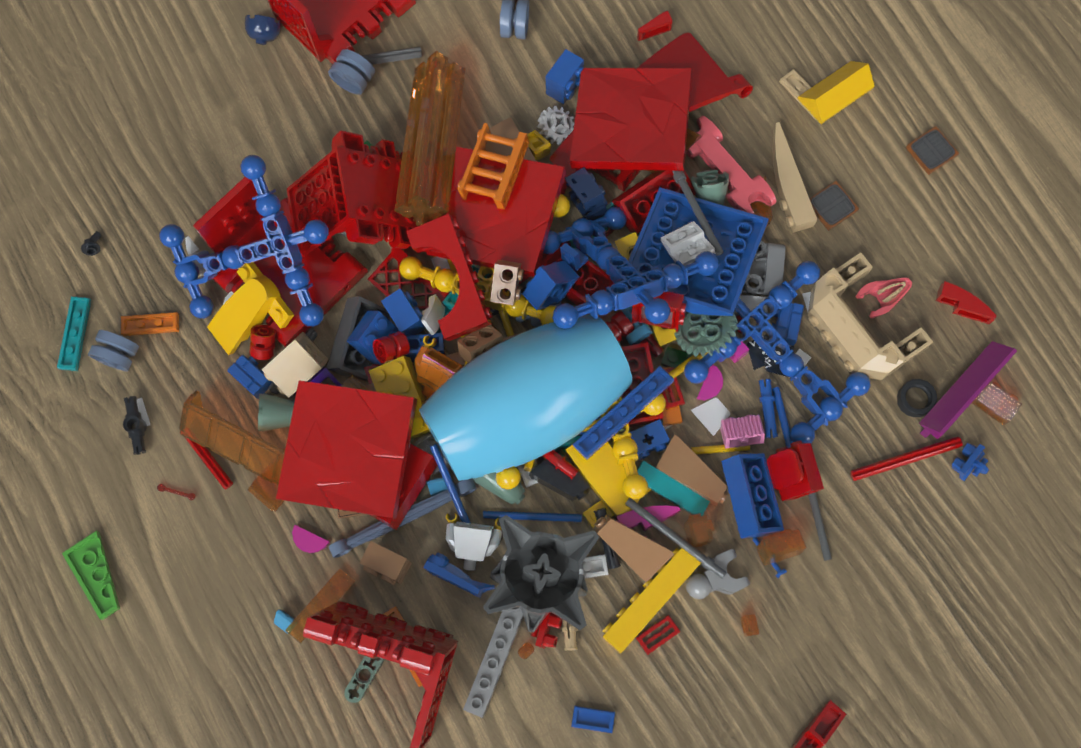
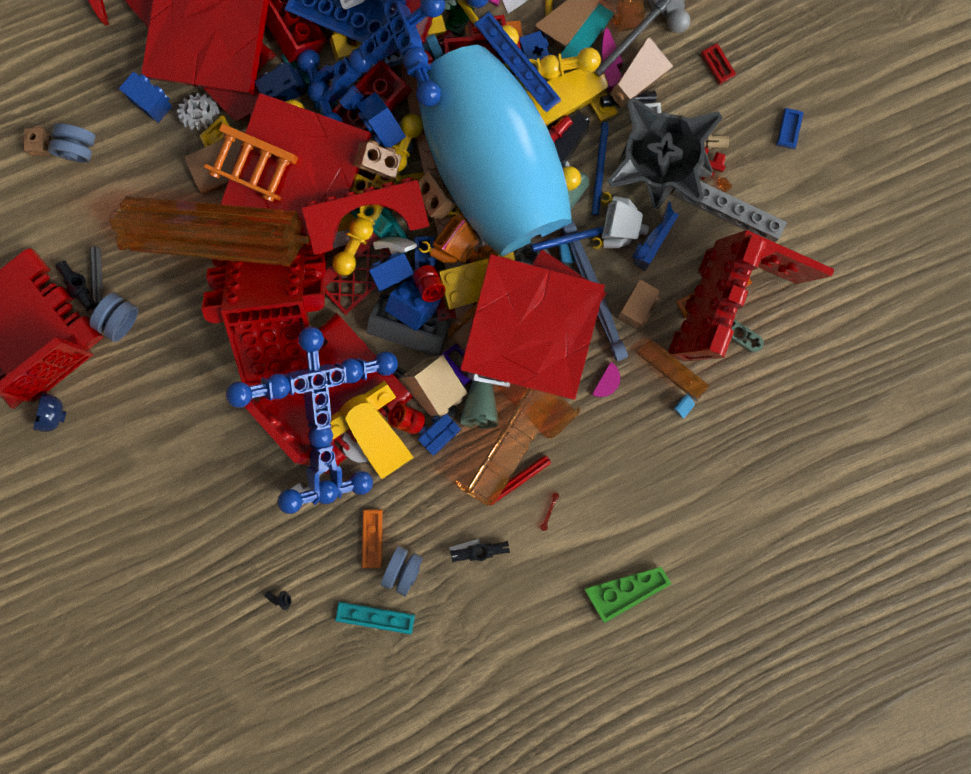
camera: 85 degrees left, 10 degrees up
(389, 34) = (79, 291): none -> black pin
(650, 601) = (689, 66): yellow brick -> none

